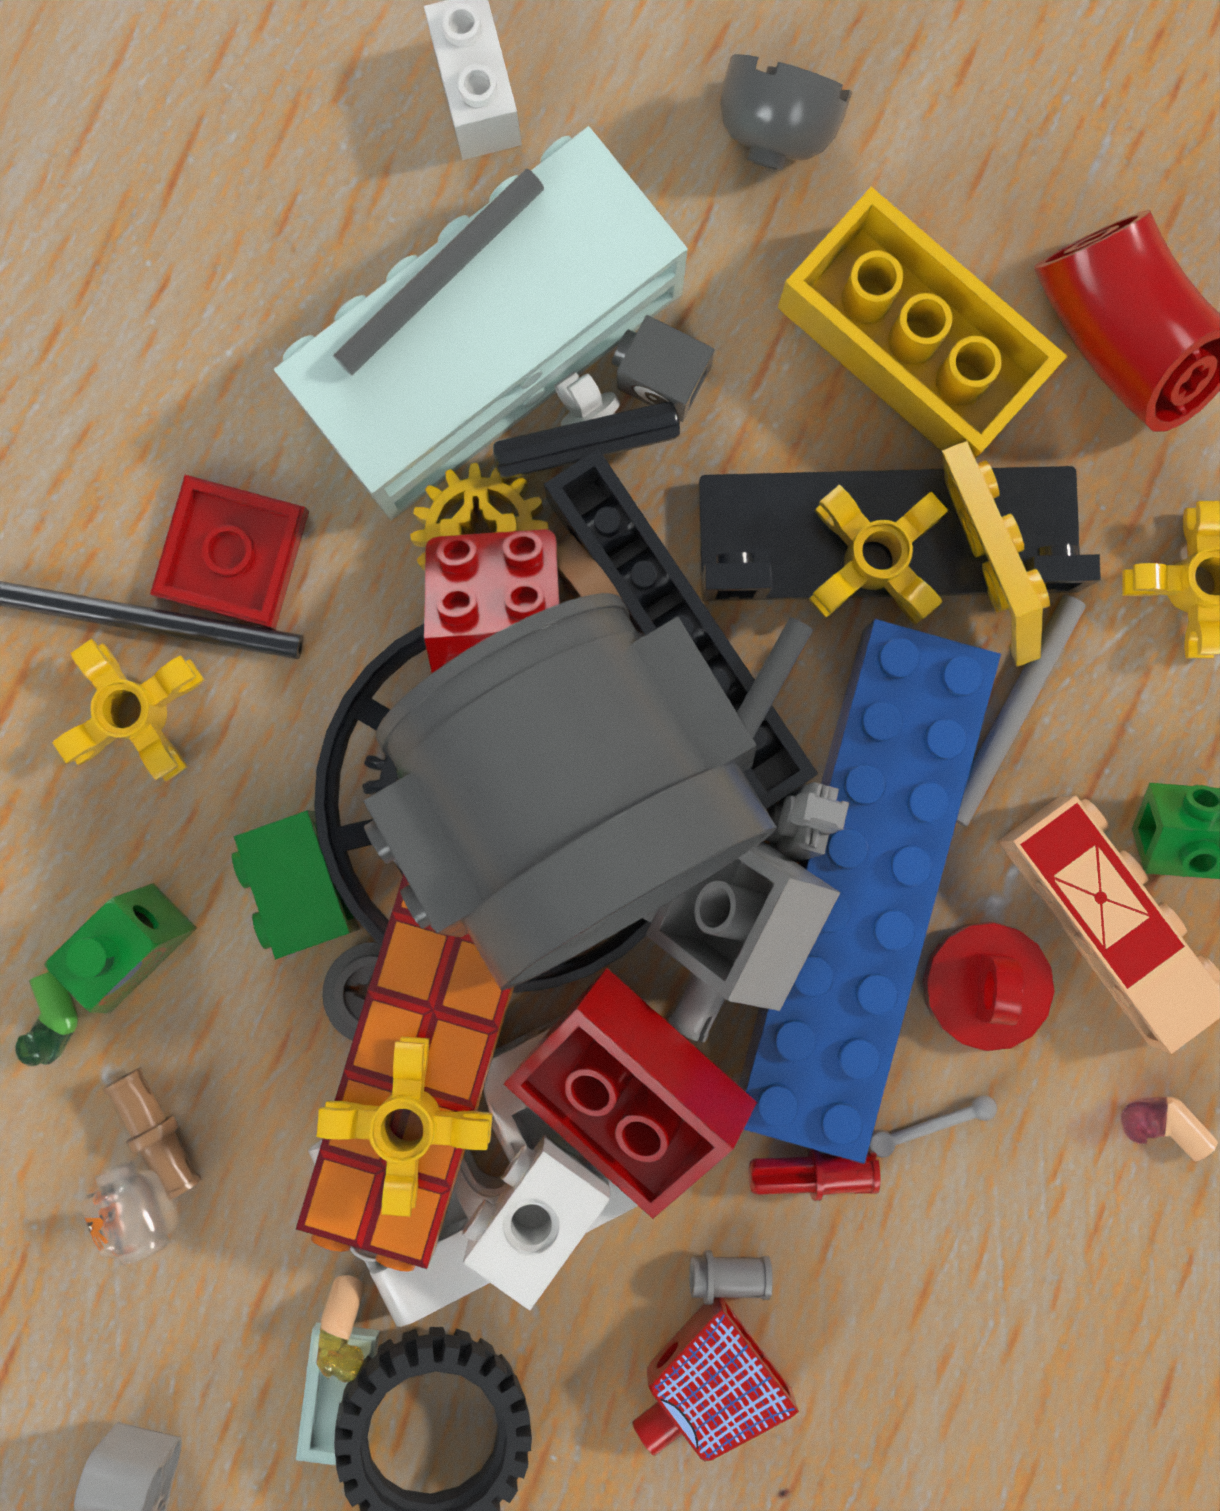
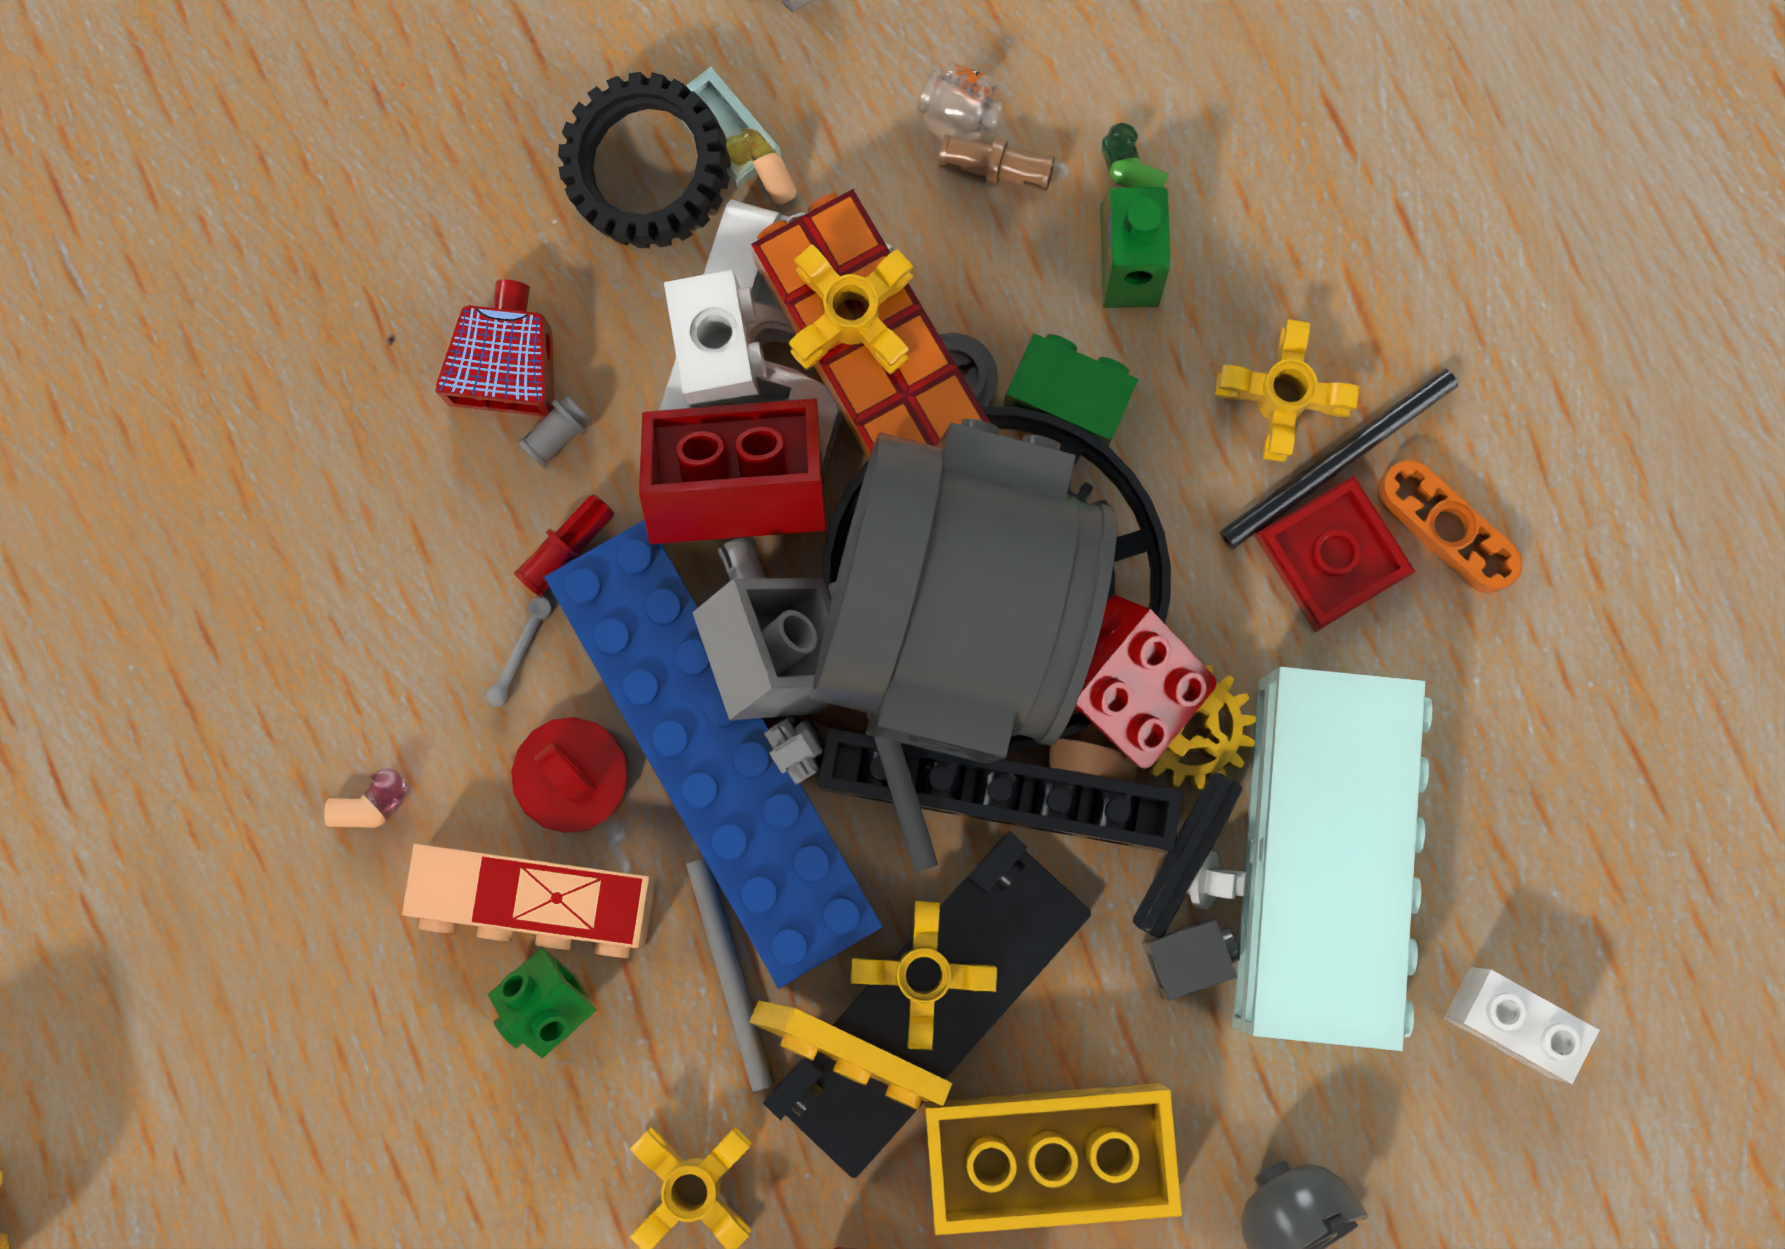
camera: 130 degrees right, 5 degrees down
(138, 437) = (1471, 565): none -> orange beam
(439, 271) = (1390, 850): dark grey bar -> none

